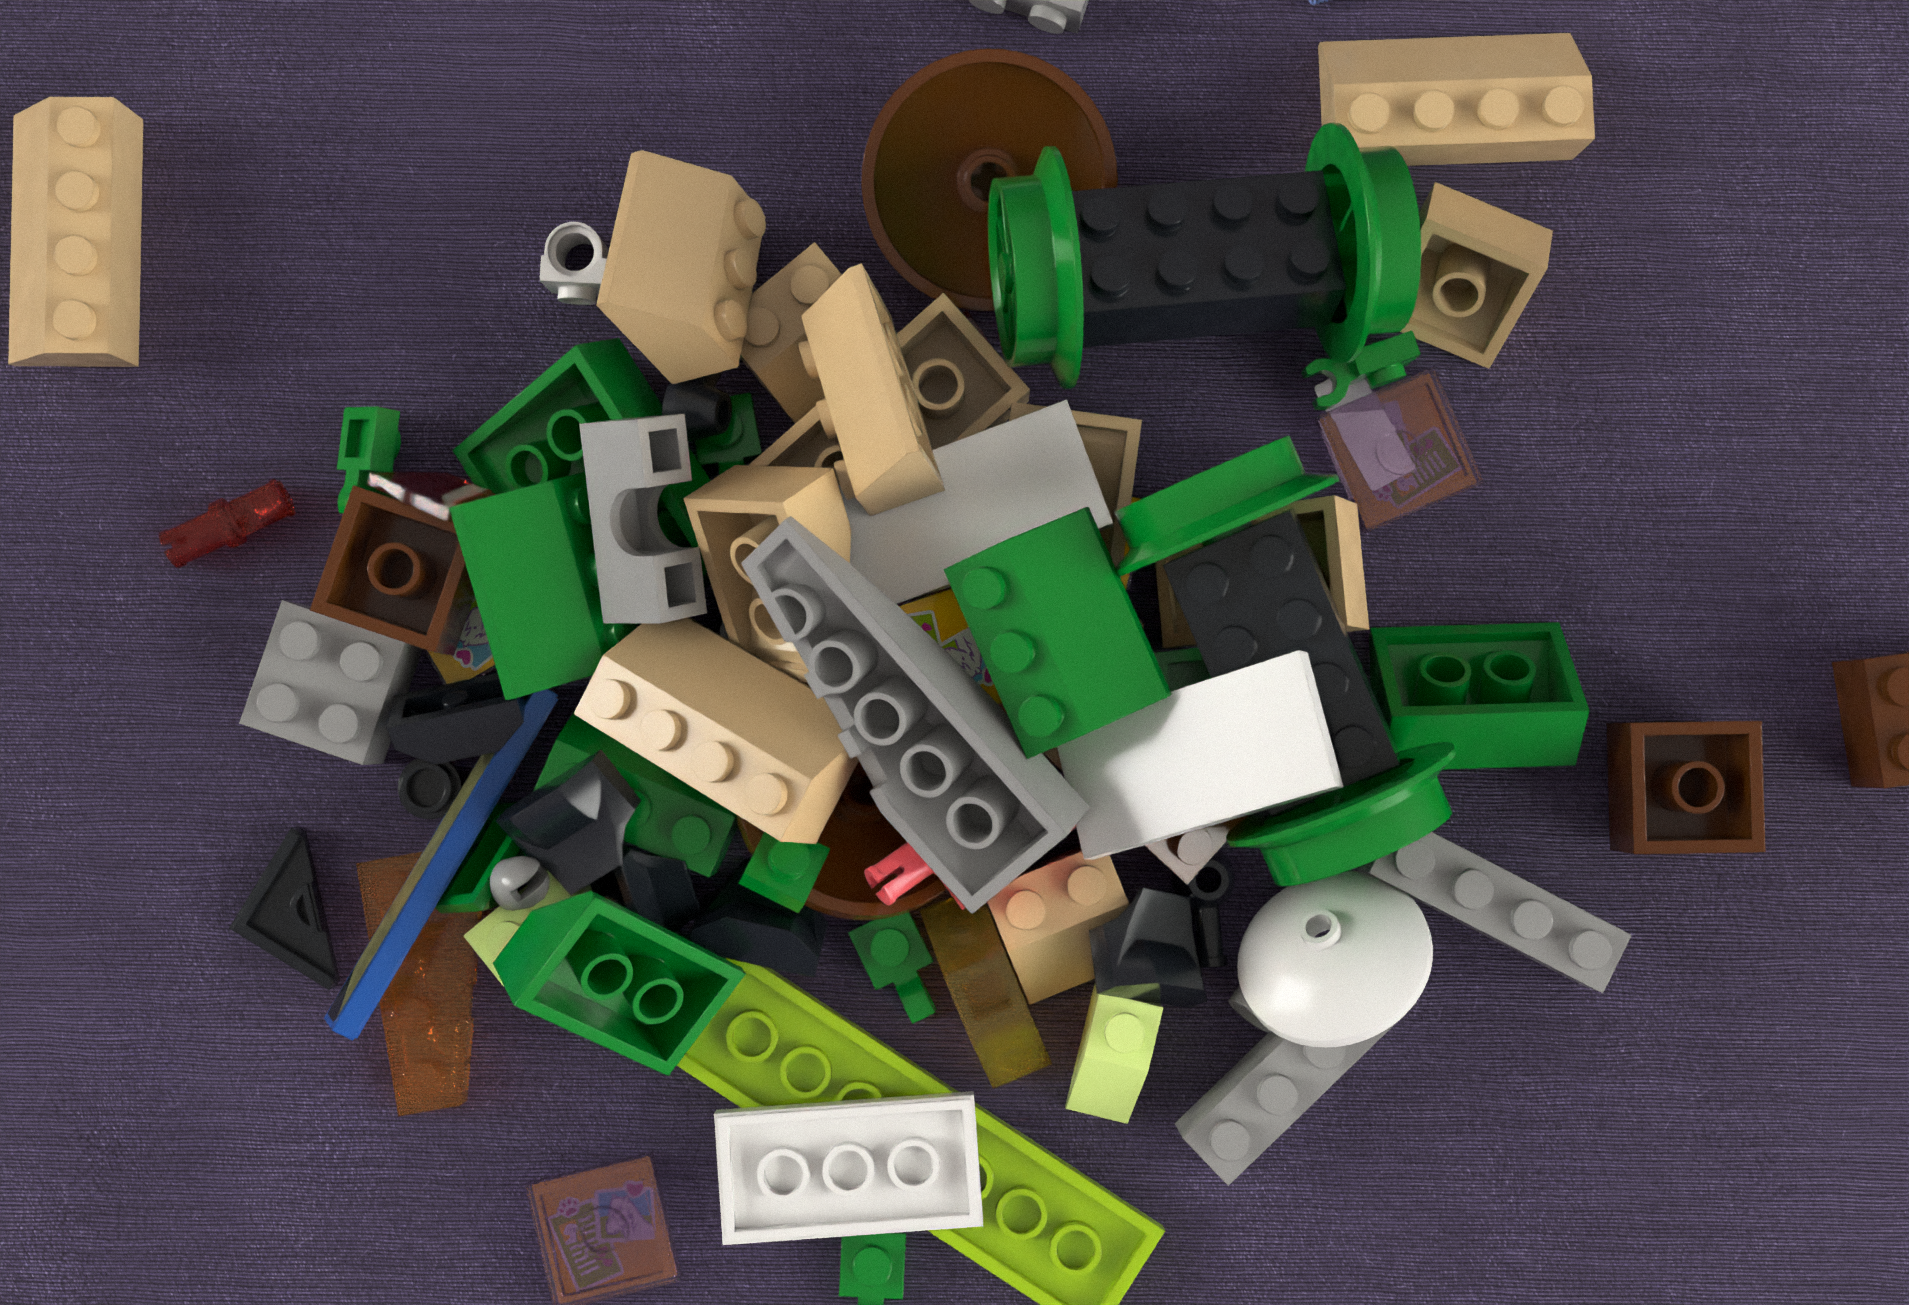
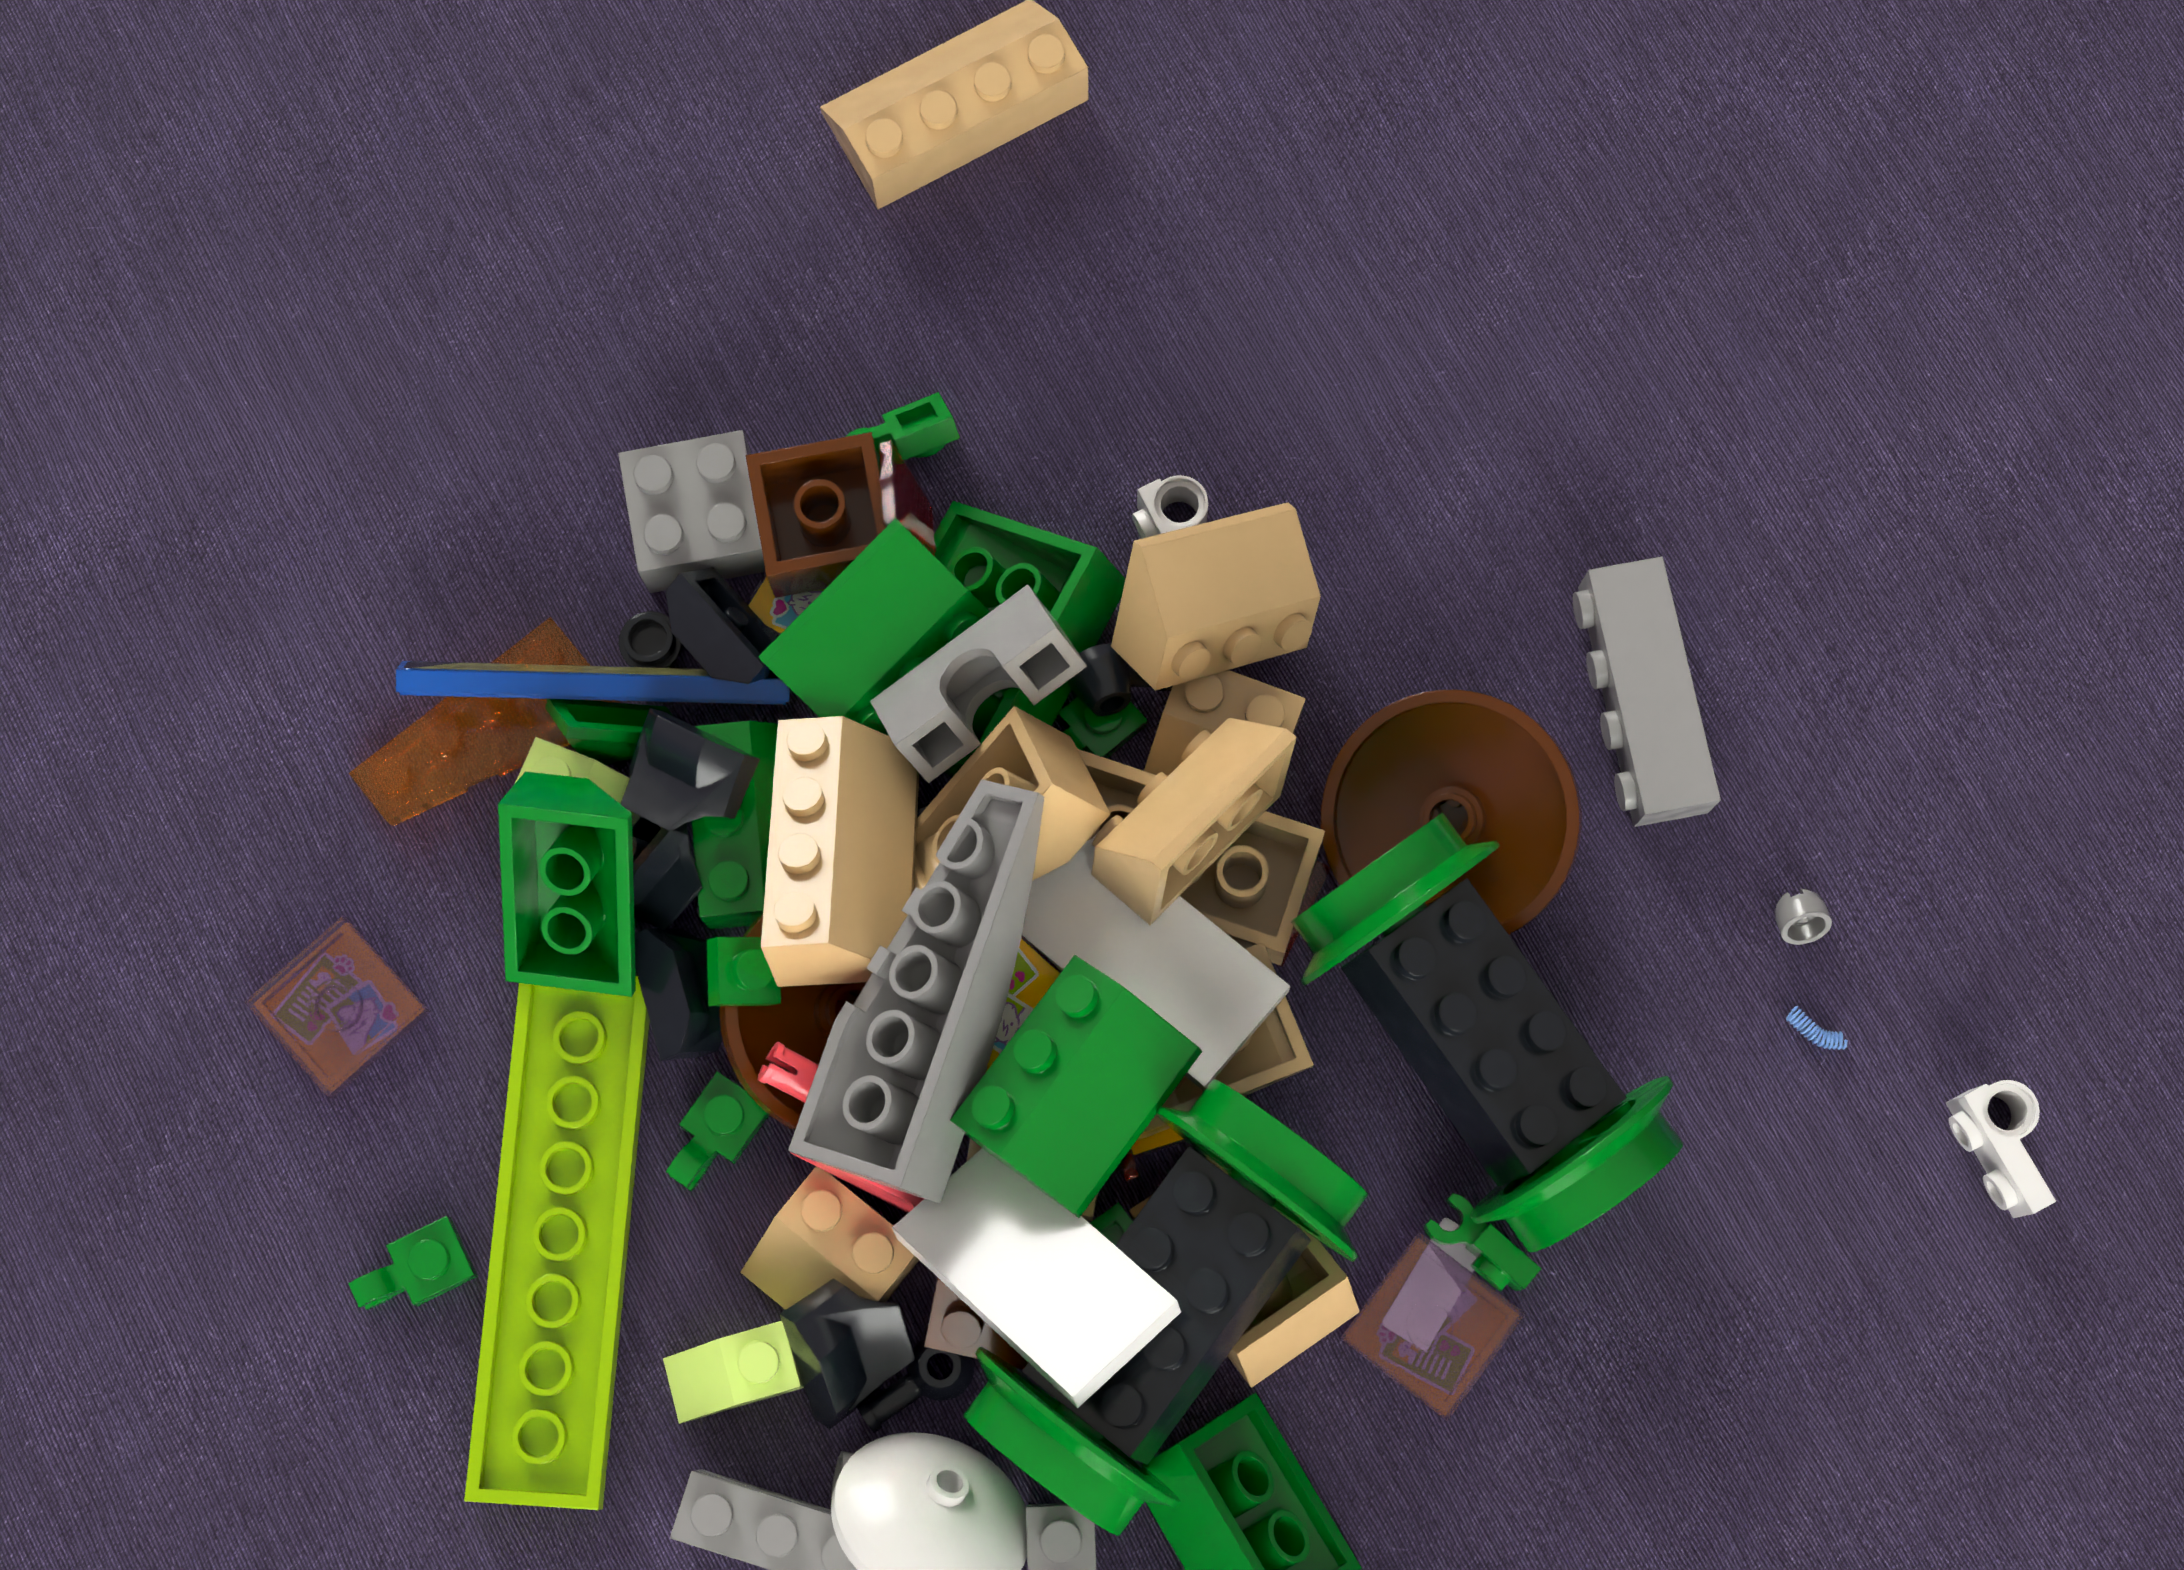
camera: 60 degrees right, 10 degrees down
(227, 523) = (785, 352): clear red pin -> none
(288, 913) = (475, 585): black tile -> none
(512, 874) = (611, 746): light grey hinge -> none
(848, 1168) = (507, 1187): white tile -> none
(985, 991) = (728, 1223): clear yellow slope -> none
(1461, 97) = (1779, 1195): tan slope -> none
(1474, 274) = (1624, 1292): tan slope -> none

